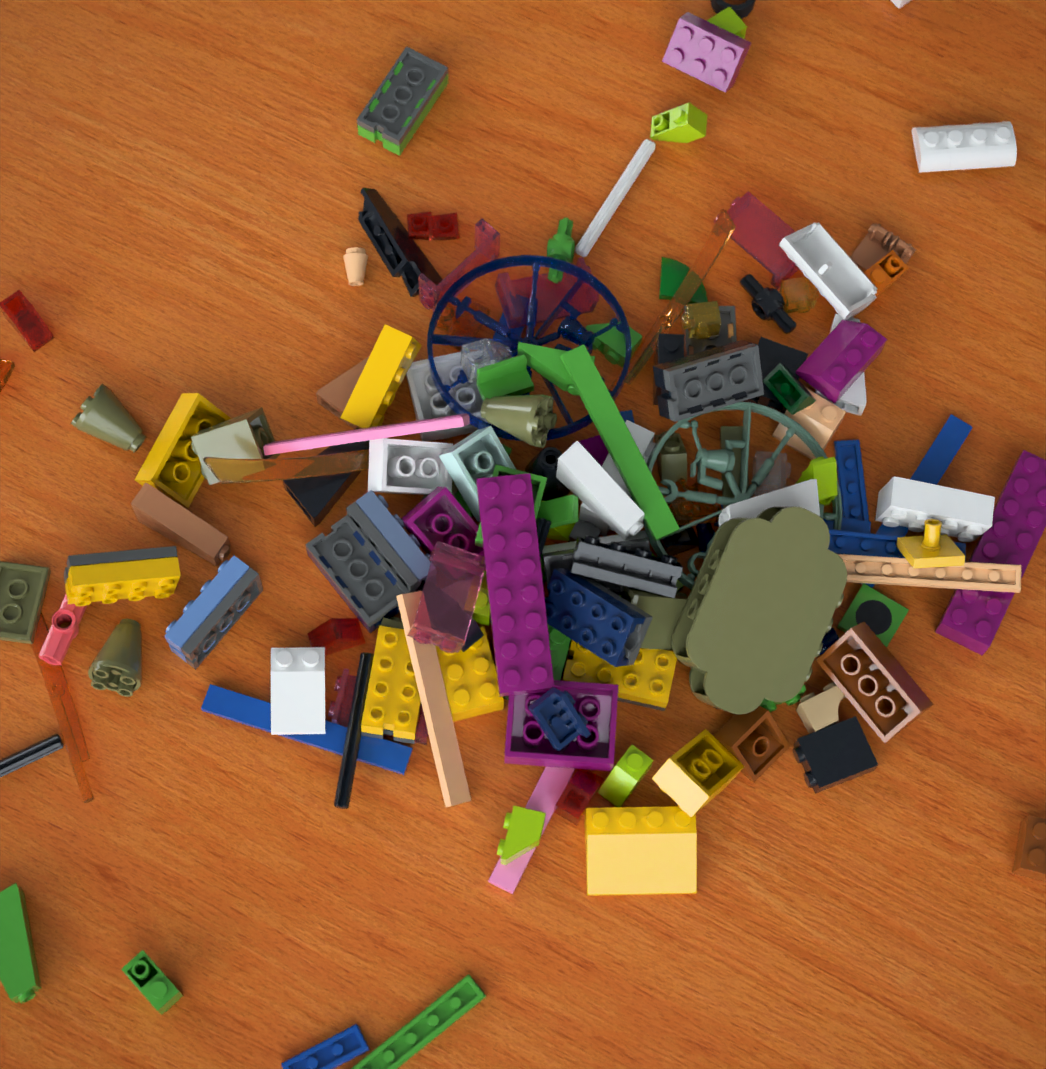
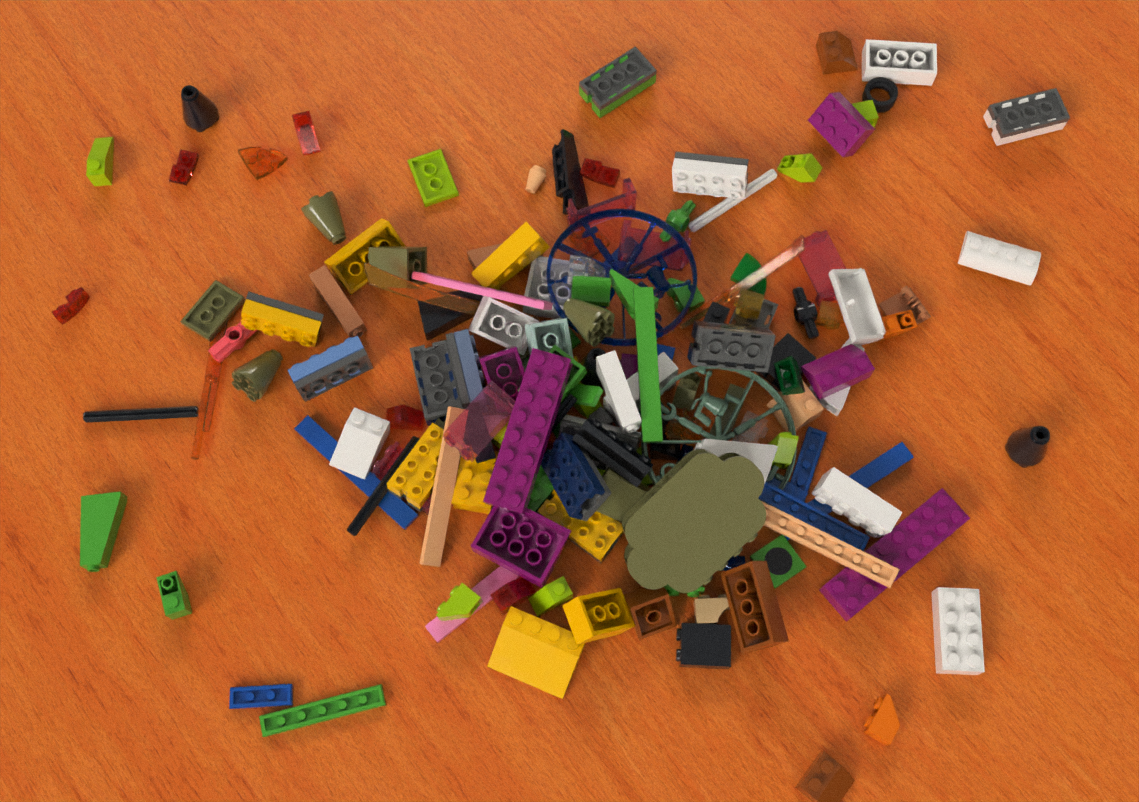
camera: 30 degrees right, 0 degrees up
(221, 315) = (433, 177): none -> lime tile
(559, 718) = (515, 536): dark blue bracket -> none
(577, 177) = (710, 175): none -> white piece
(930, 549) = (839, 530): yellow tile -> none

